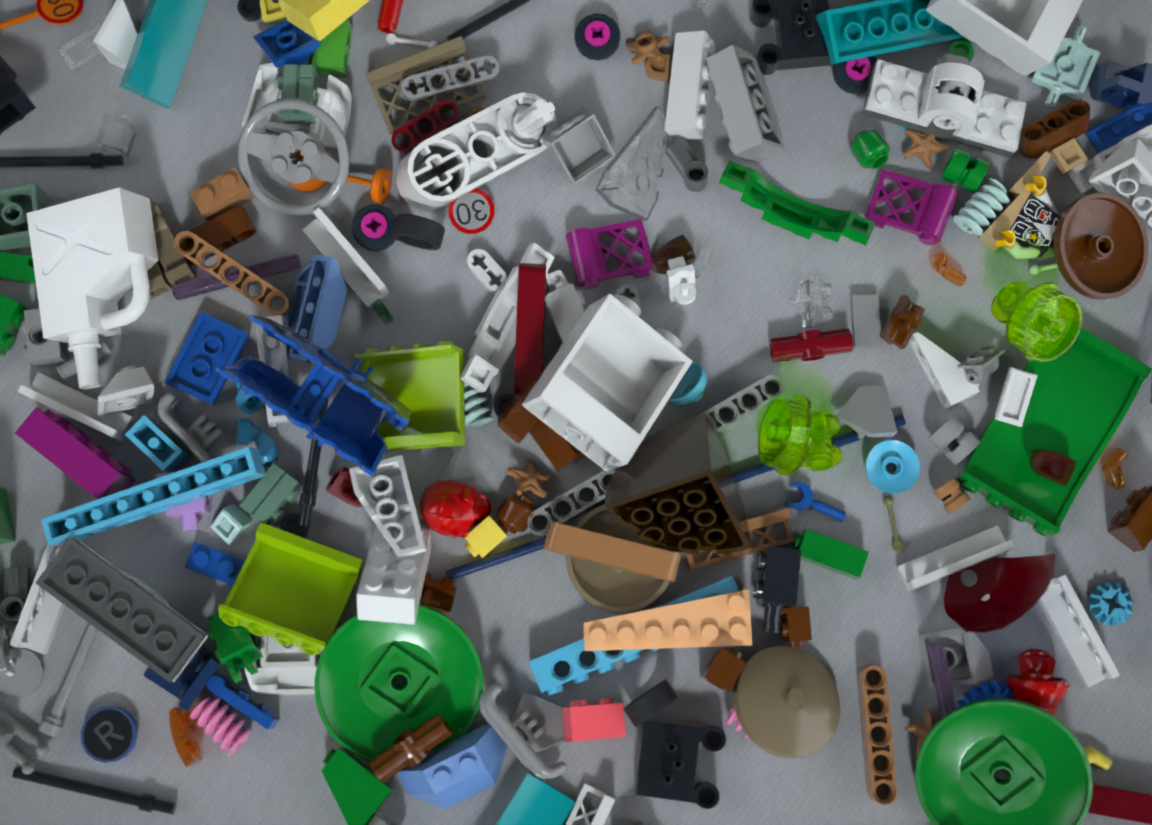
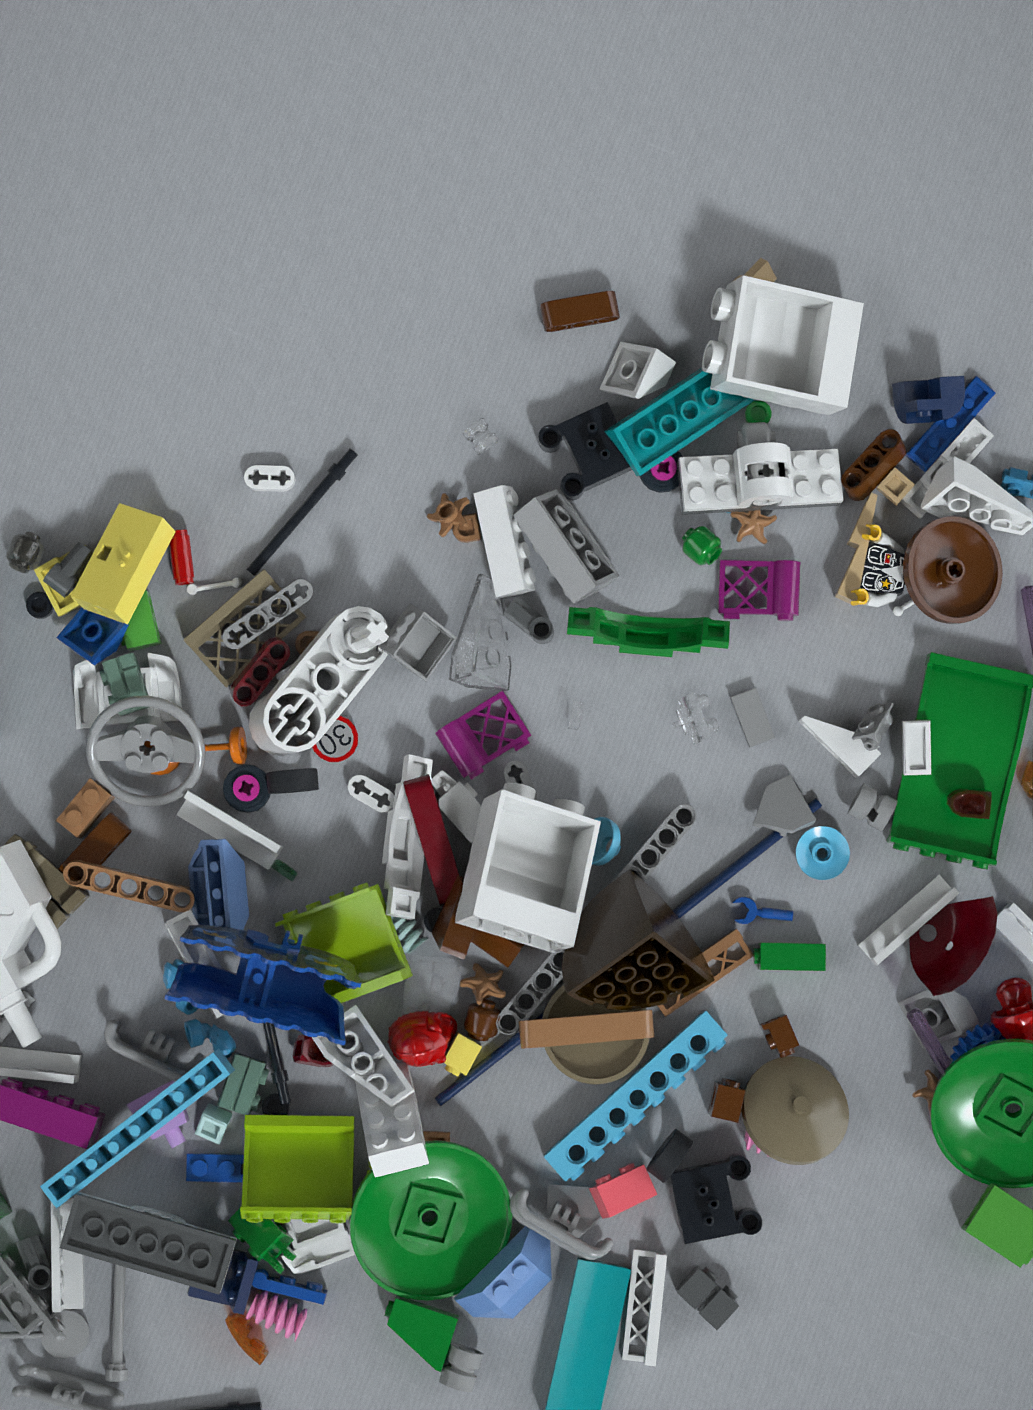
camera: 20 degrees left, 5 degrees up
(109, 734) = (174, 1360): black tile -> none
(126, 391) = (68, 1032): white slope -> none
(157, 444) = (117, 1075): medium azure brick -> none
(206, 347) = (131, 973): blue plate -> none
(211, 283) = (148, 869): clear purple axle -> none
(410, 747) = (462, 1274): reddish brown piece -> none
(438, 594) = (436, 1123): reddish brown hips -> none
(597, 46) = (400, 527): black wheel -> none
(673, 249) = (545, 718): dark brown rock -> none
(681, 281) = (563, 744): white hips -> none
(690, 624) = (685, 1069): light nougat wing -> none
(776, 583) = (750, 1004): black brick -> none
(797, 437) = (723, 858): clear neon green piece -> none
(811, 345) = (707, 761): dark red piece -> none
(885, 745) = (897, 1120): medium nougat beam -> none
(897, 545) = (851, 924): olive hinge -> none
(902, 322) = (787, 710): reddish brown hips -> none
(946, 271) = (815, 643): clear orange arm -> none
(951, 495) = (886, 861): medium nougat wheel -> none
(965, 170) = (790, 536): green wheel -> none
(982, 207) = (828, 568): light aqua piece -> none
(1038, 319) = (913, 670): clear neon green piece -> none
(1068, 70) = (868, 397): light aqua plate -> none

